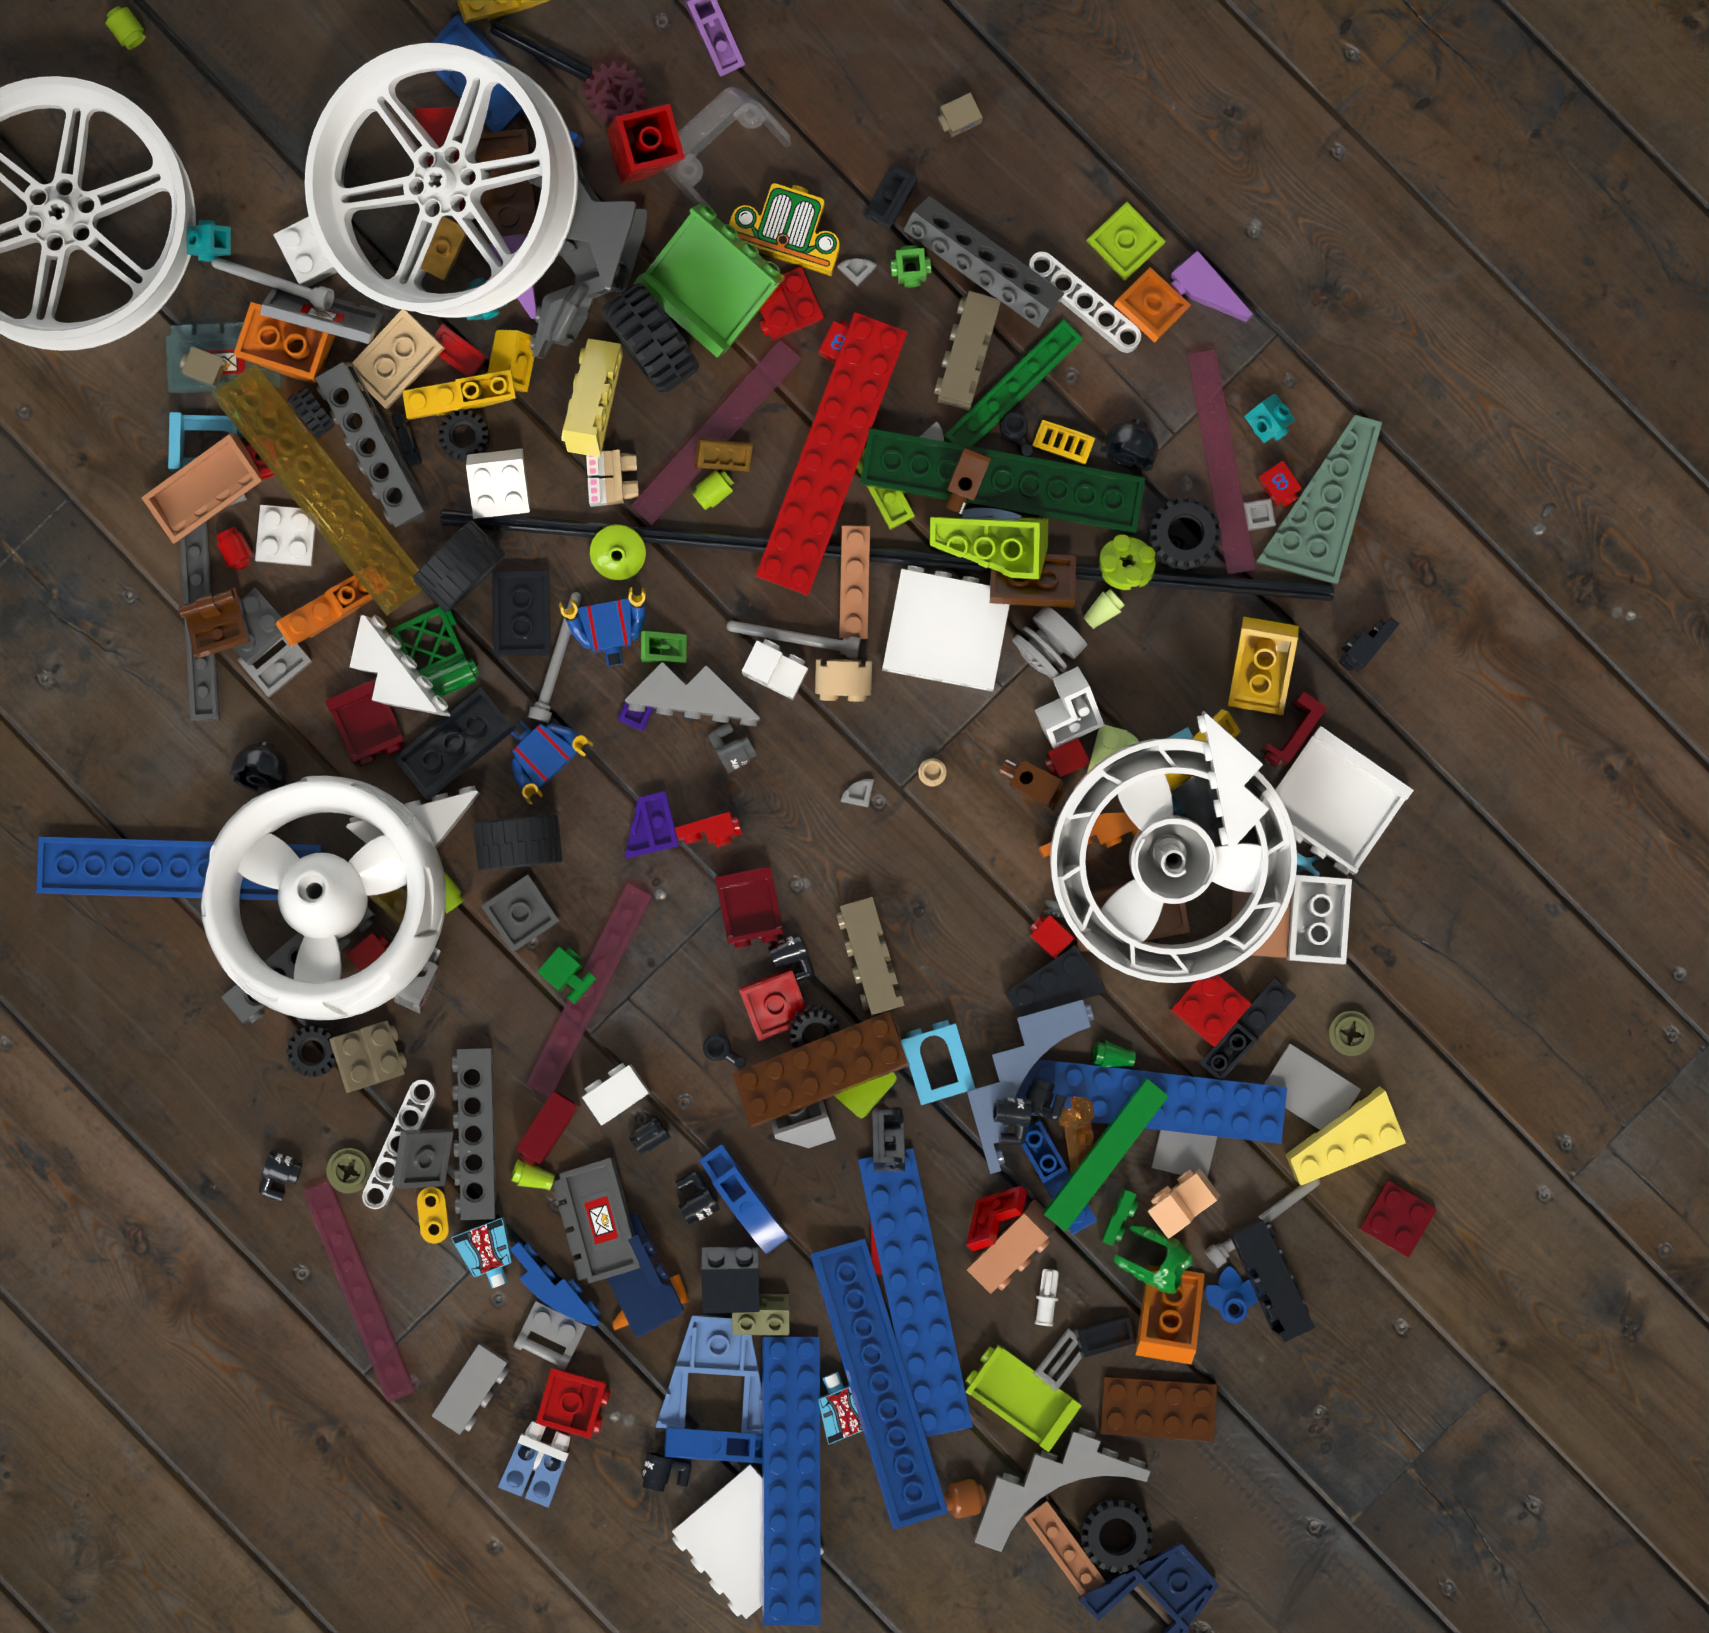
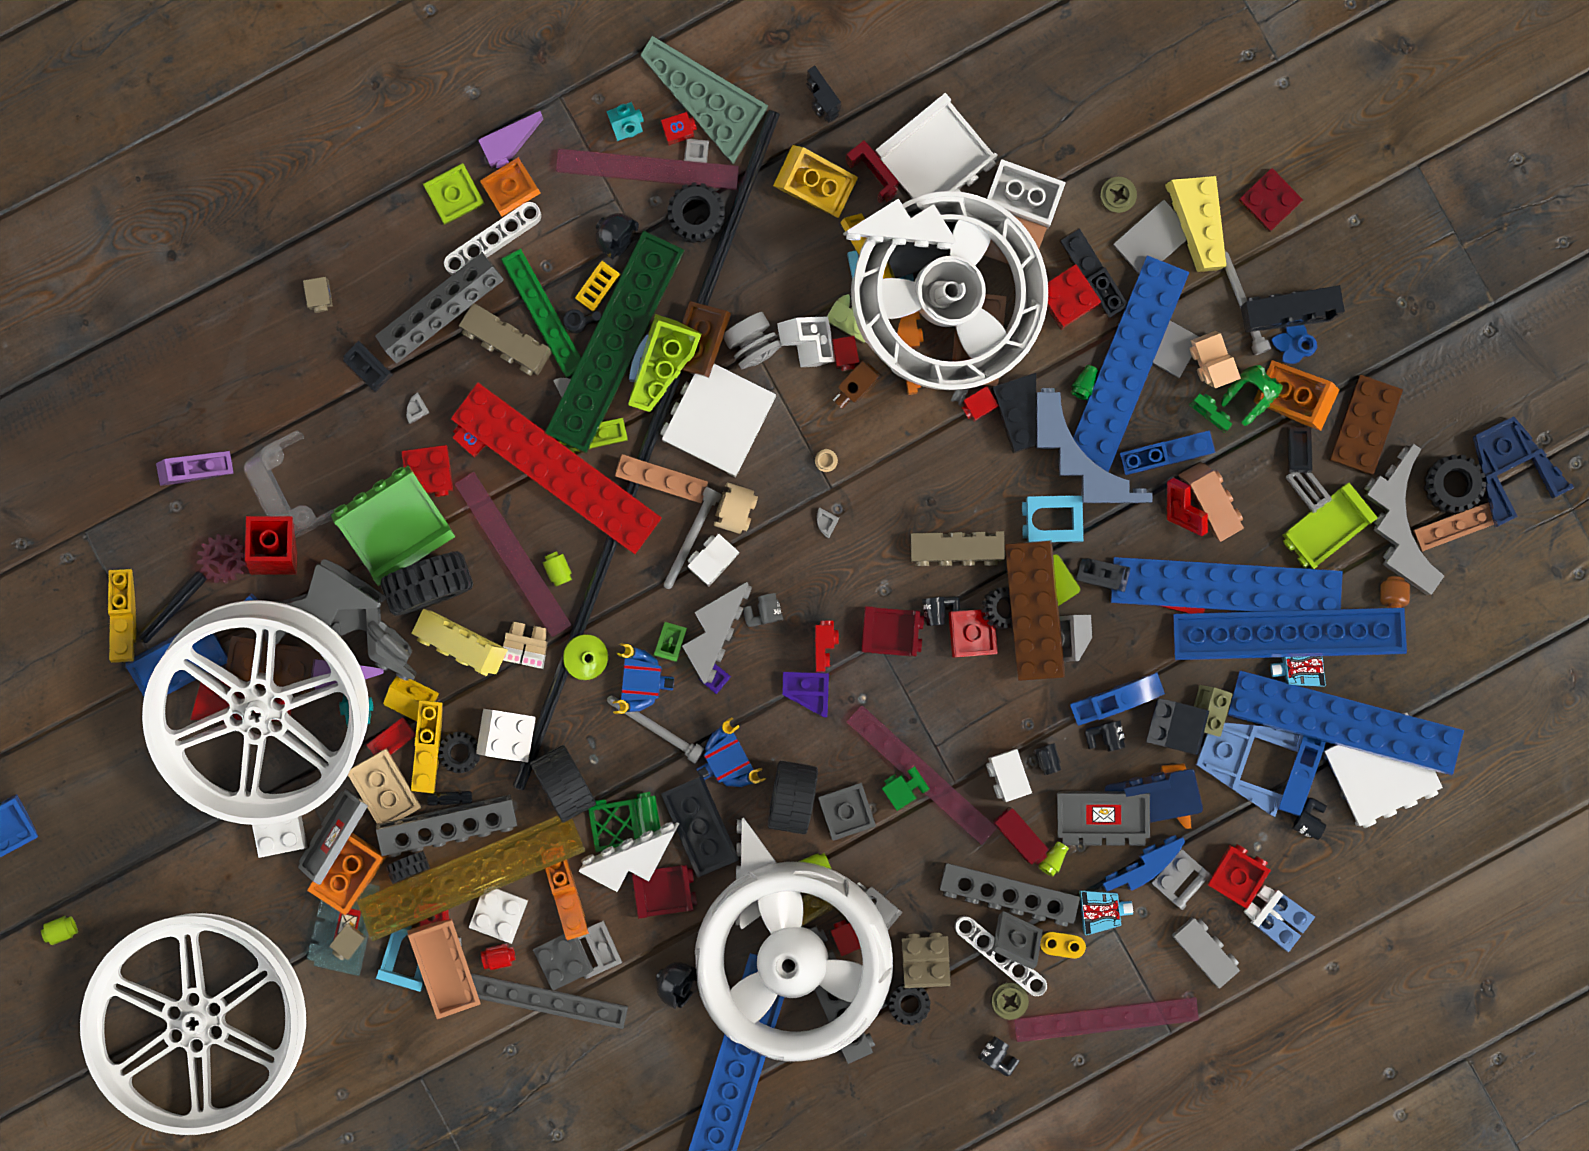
camera: 75 degrees left, 0 degrees up
(208, 240) = (248, 915): teal brick -> none
(215, 622) = (553, 987): reddish brown plate -> none
(320, 297) = (319, 834): light grey piece -> none
(444, 248) = (310, 725): pearl gold plate -> none
(521, 613) = (612, 745): black plate -> none
(717, 1048) = (995, 687): black piece -> none
(723, 455) = (532, 553): pearl gold plate -> none
(789, 229) = (370, 452): brick -> none
(913, 256) = (421, 358): bright green brick -> none
(969, 465) = (596, 364): reddish brown torso -> none
(1016, 1113) = (1110, 471): black piece -> none
(1041, 1098) = (1104, 447): black piece -> none
(1047, 1297) = (1258, 486): white axle -> none
(1078, 1129) = (1141, 425): clear orange plate -> none
(1104, 608) = (736, 291): yellowish green cone -> none
(1105, 1154) = (1161, 409): green tile -> none
(1127, 549) = (694, 263): lime plate -> none
(1305, 863) = (980, 191): medium azure bar -> none

